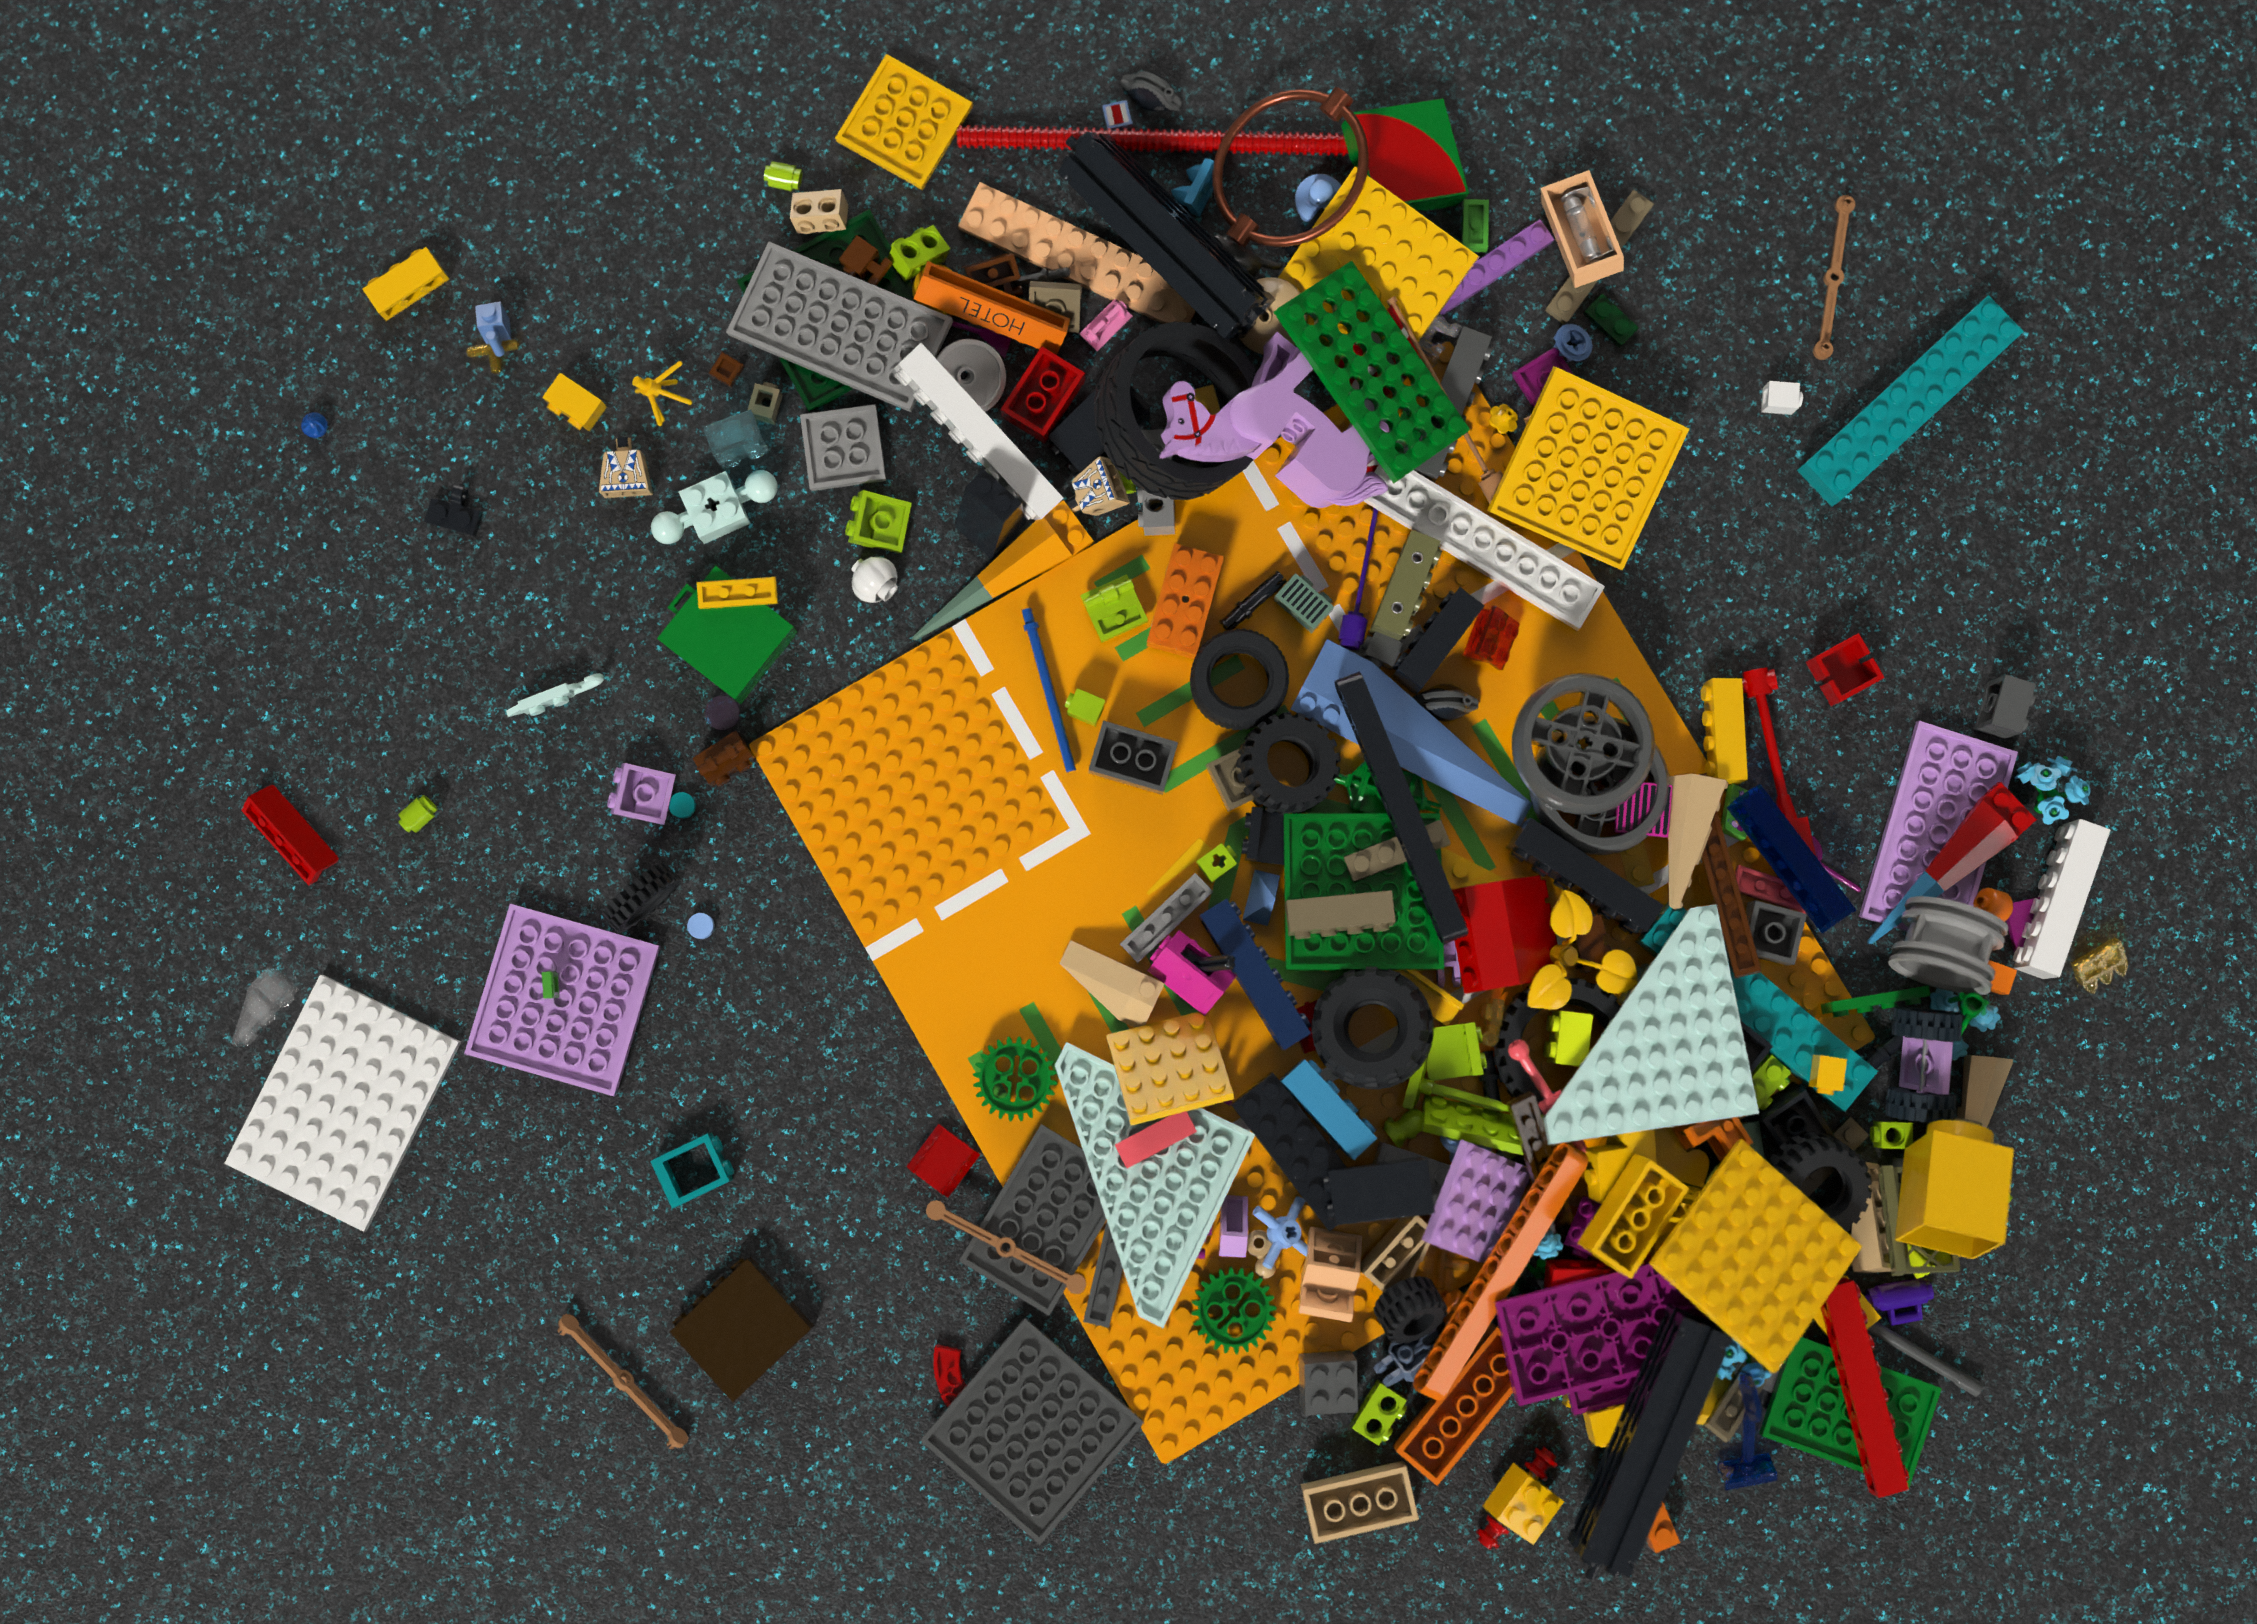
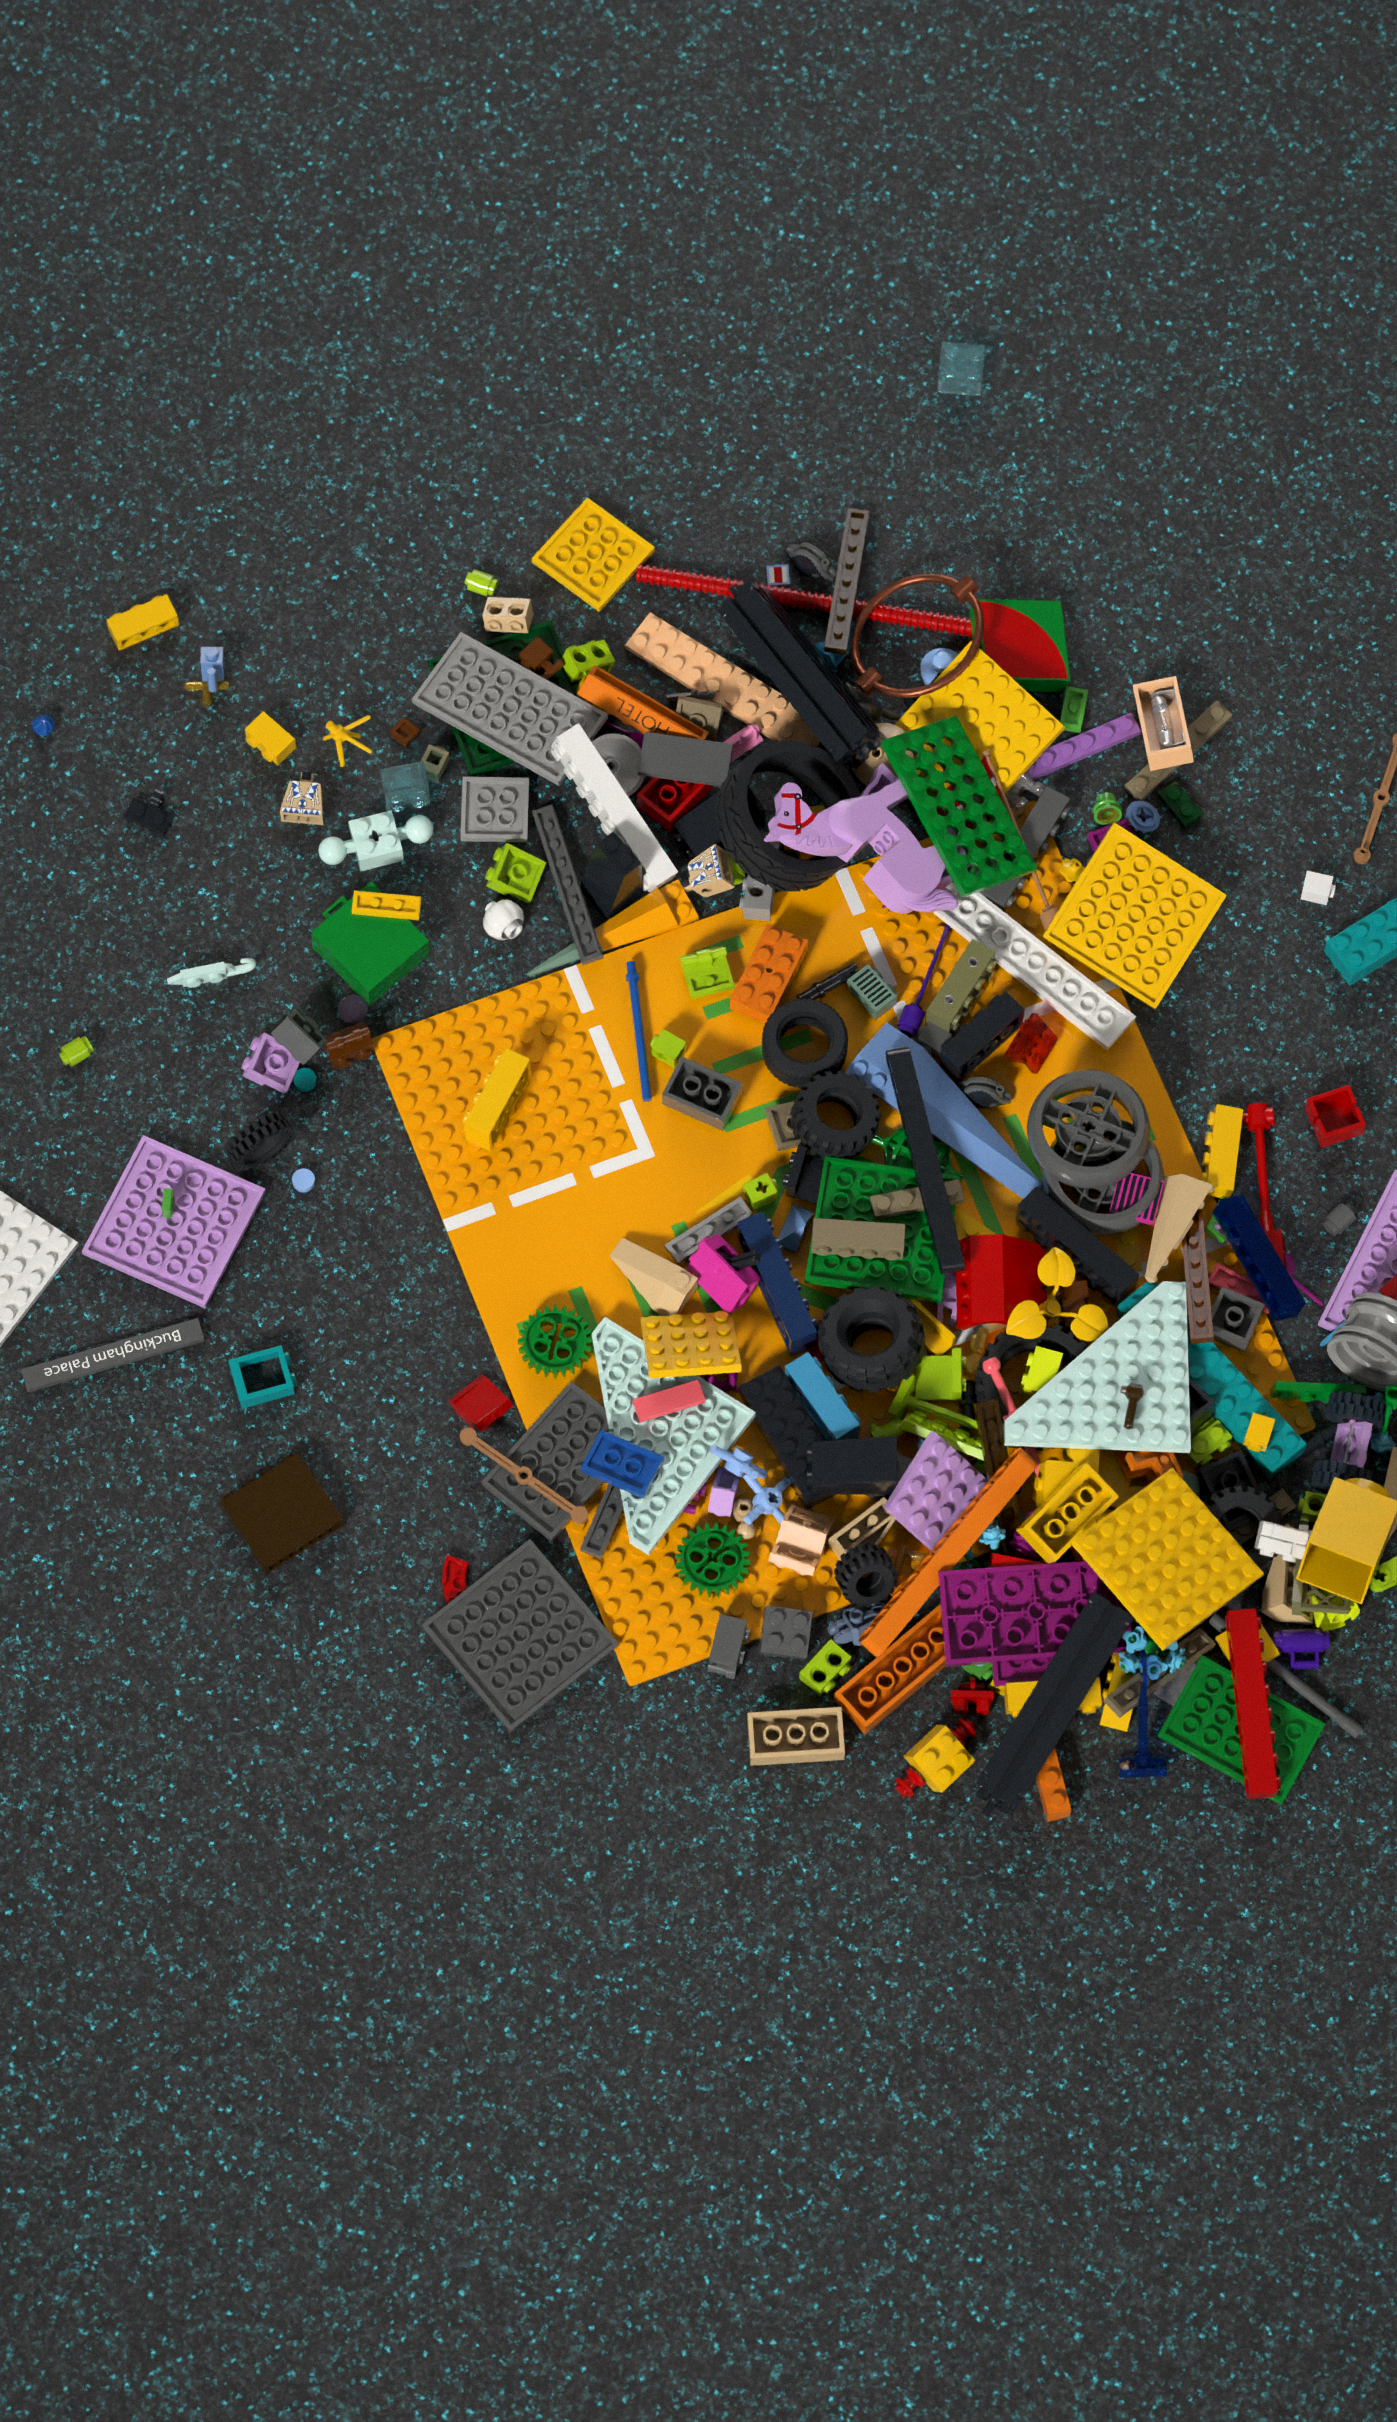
camera: 10 degrees right, 15 degrees down
(521, 1168) = (112, 1355): none -> dark grey tile
(666, 760) = (299, 1036): none -> dark grey brick
(676, 1436) = (171, 1541): medium nougat piece -> none
(902, 802) = (497, 1099): none -> yellow brick
(940, 526) = (567, 884): none -> dark grey tile
(996, 272) = (652, 685): reddish brown brick -> none
(1049, 358) = (685, 759): none -> dark grey tile
(1116, 1227) = (622, 1464): none -> blue plate
(1197, 112) = (846, 581): none -> plate
(1246, 1196) = (739, 1462): none -> light blue bar
(1266, 1407) = (727, 1646): none -> dark grey hinge
(1532, 340) = (1107, 809): none -> bright green piece
(1535, 1423) = (968, 1695): none -> red hips
(1687, 1060) = (1133, 1393): none -> dark brown piece
(1865, 788) = (1339, 1219): none -> dark grey brick
(1874, 1201) = (1281, 1540): none -> white brick

